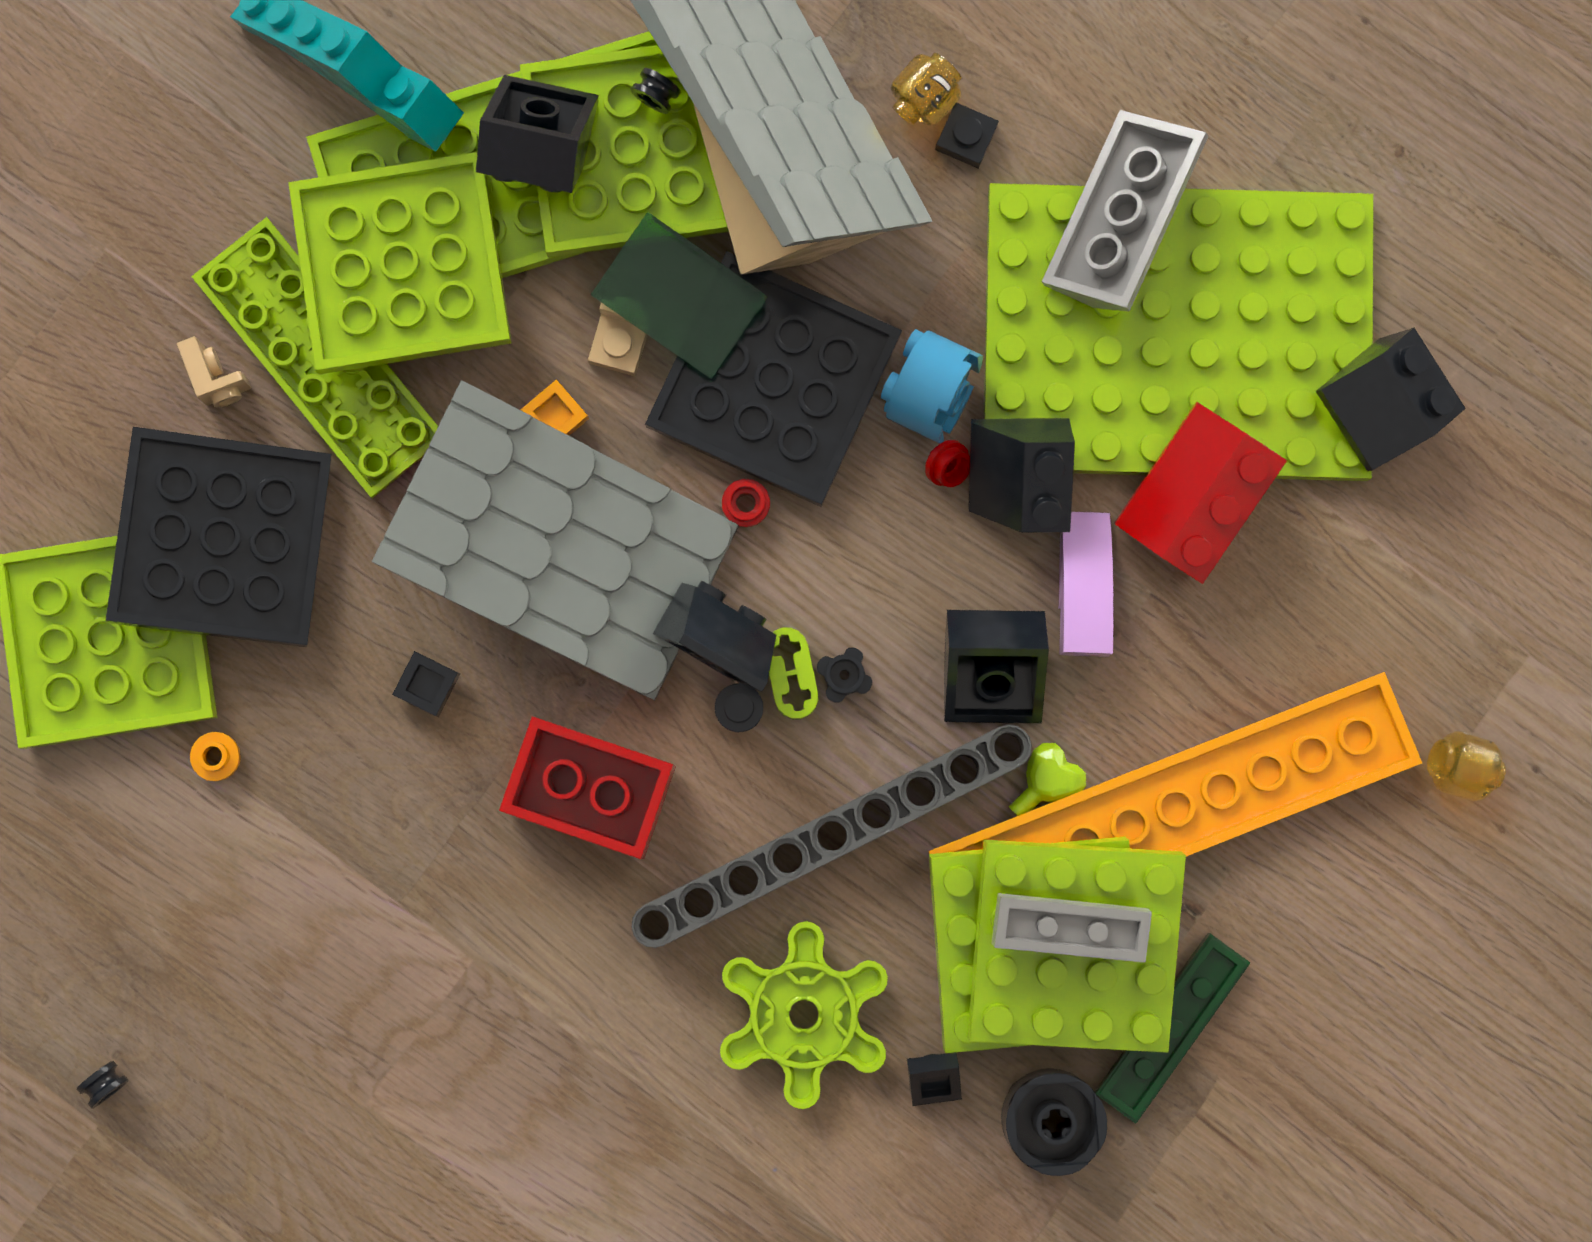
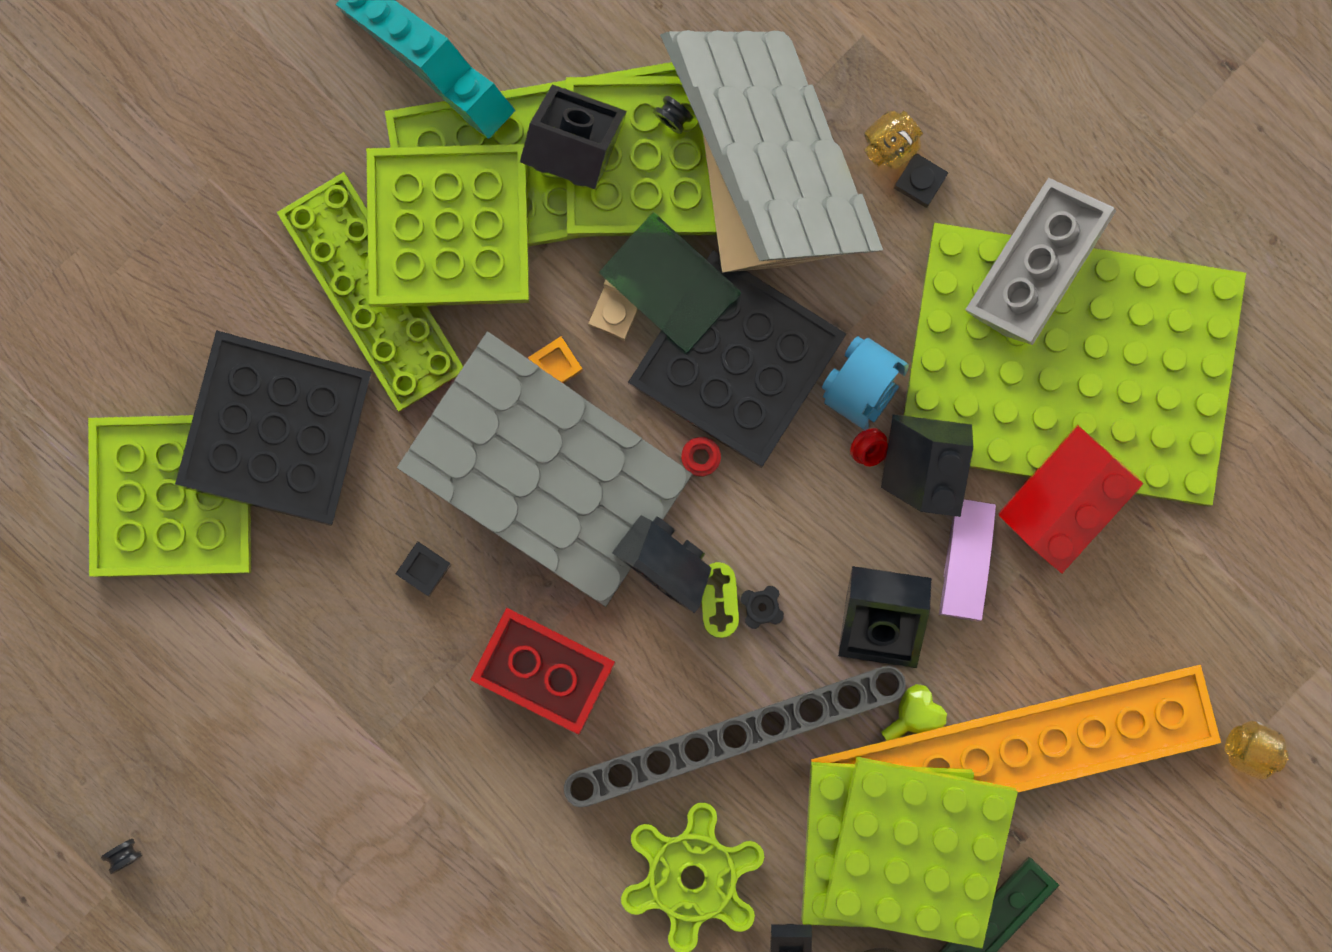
camera: 10 degrees right, 0 degrees up
(204, 367) = (277, 287): tan bracket -> none
(228, 763) = (258, 604): light orange plate -> none
(738, 708) = (673, 622): black plate -> none
(1071, 927) = (917, 837): light grey plate -> none
(1390, 398) = (1235, 443): black slope -> none

